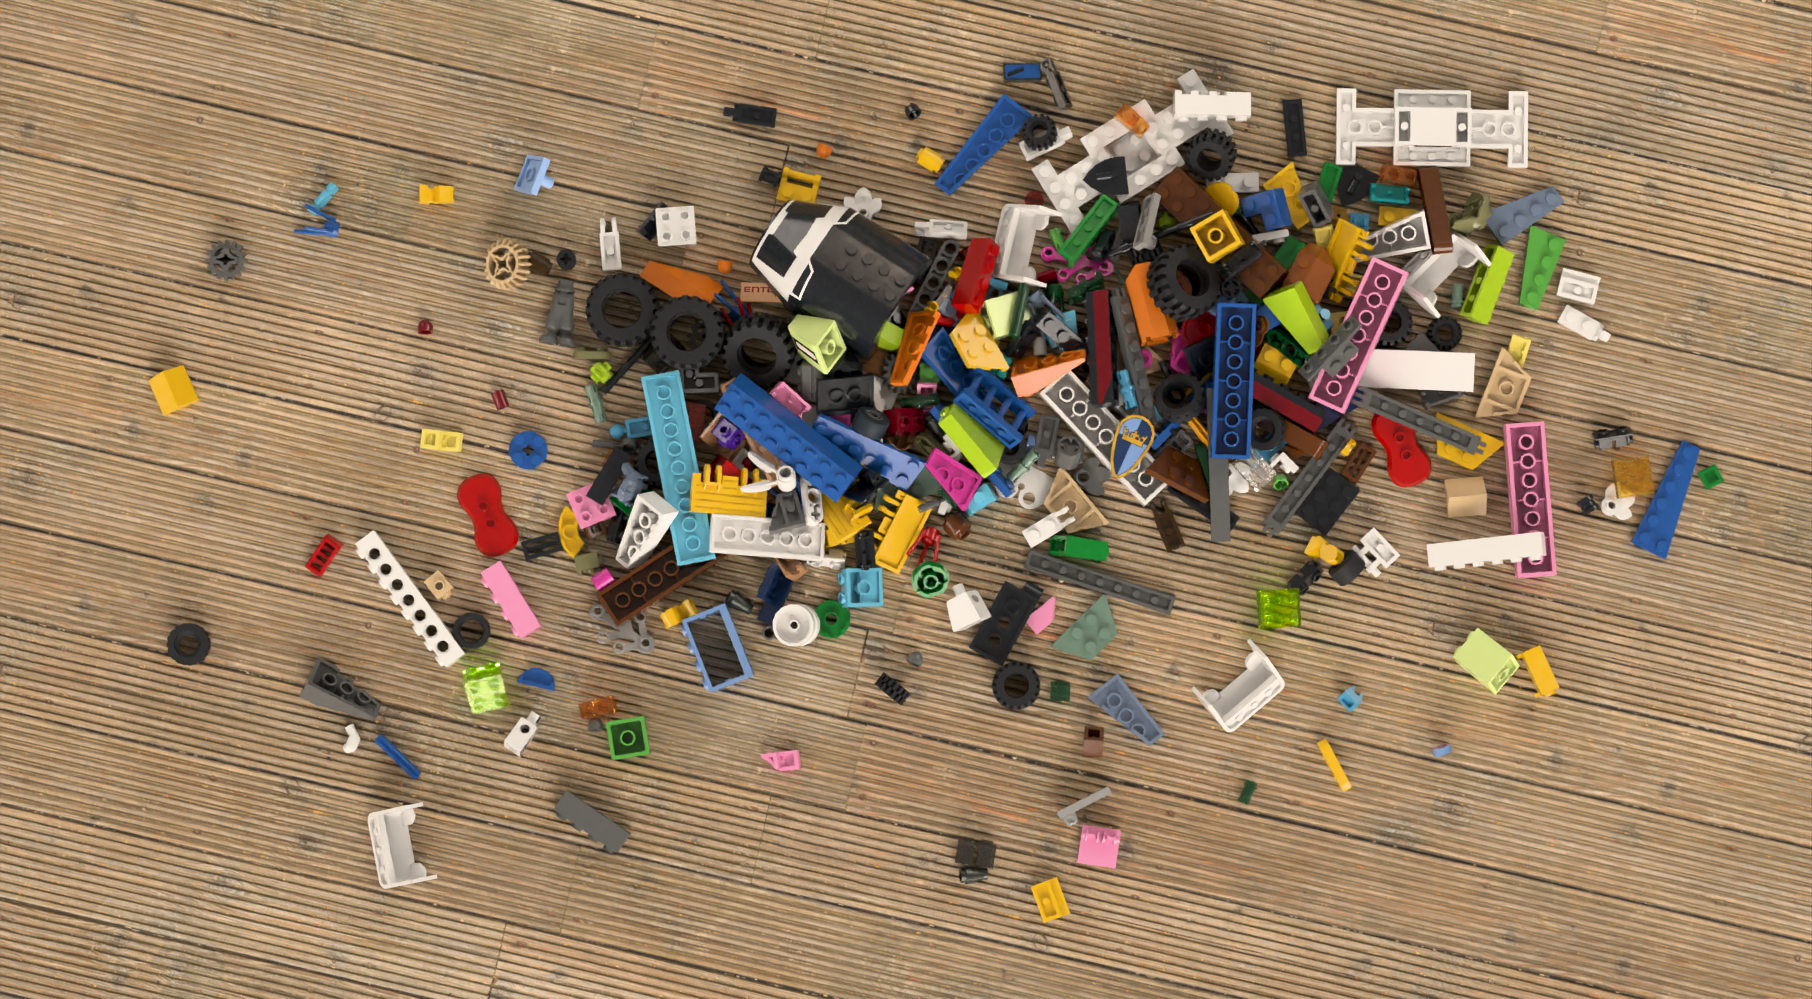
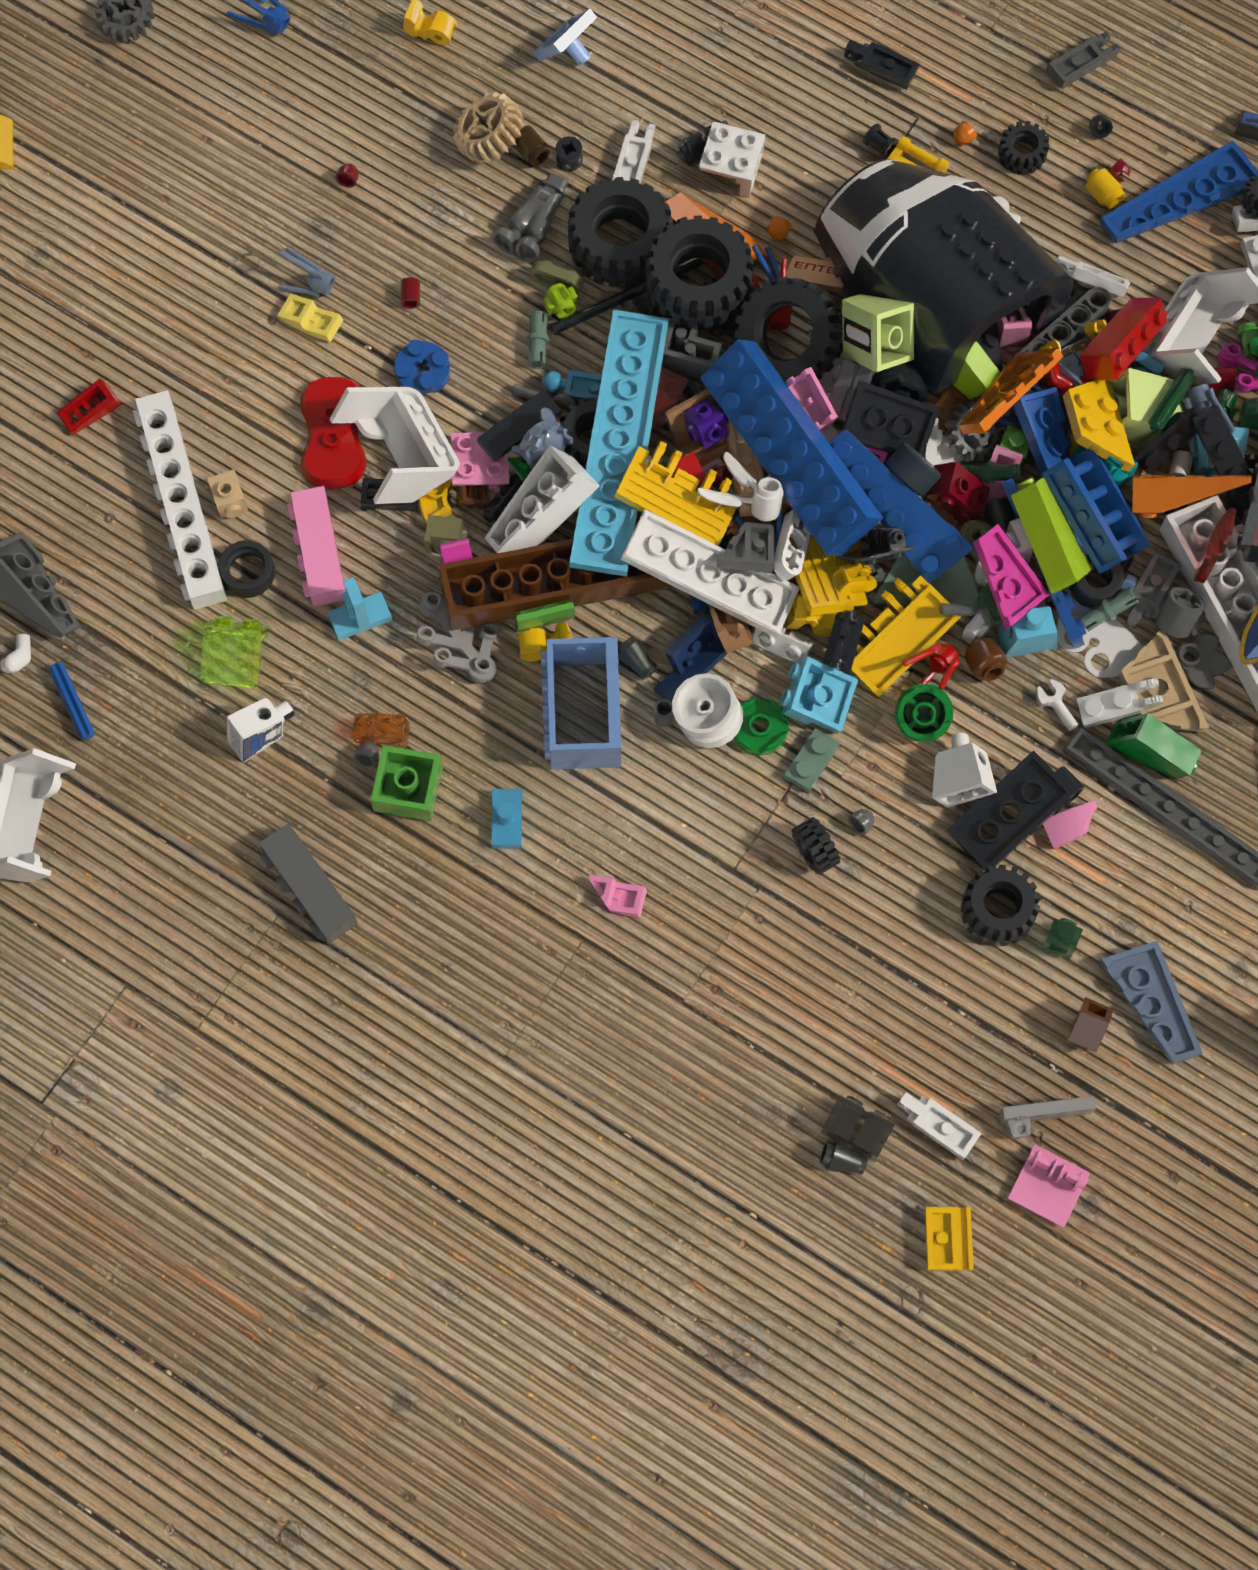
camera: 15 degrees right, 15 degrees down
(438, 412) = (319, 279): none -> sand blue plant
(538, 678) = (311, 664): blue tile -> none
(543, 506) = (410, 434): none -> white windscreen
(554, 635) = (358, 612): none -> medium azure bracket
(672, 599) = (544, 615): none -> bright green slope
(696, 735) = (506, 819): none -> dark azure tile
(866, 158) = (1026, 134): none -> black tyre
(871, 630) = (811, 760): none -> sand green plate
(884, 65) = (1081, 60): none -> dark grey hinge
(935, 142) = (1118, 168): none -> dark red hinge
(1012, 539) = (1056, 703): none -> white bar
(1023, 833) = (940, 1124): none -> white hinge
(1076, 406) = (1215, 546): none -> clear red slope
(1089, 632) = (1131, 872): sand green wing -> none

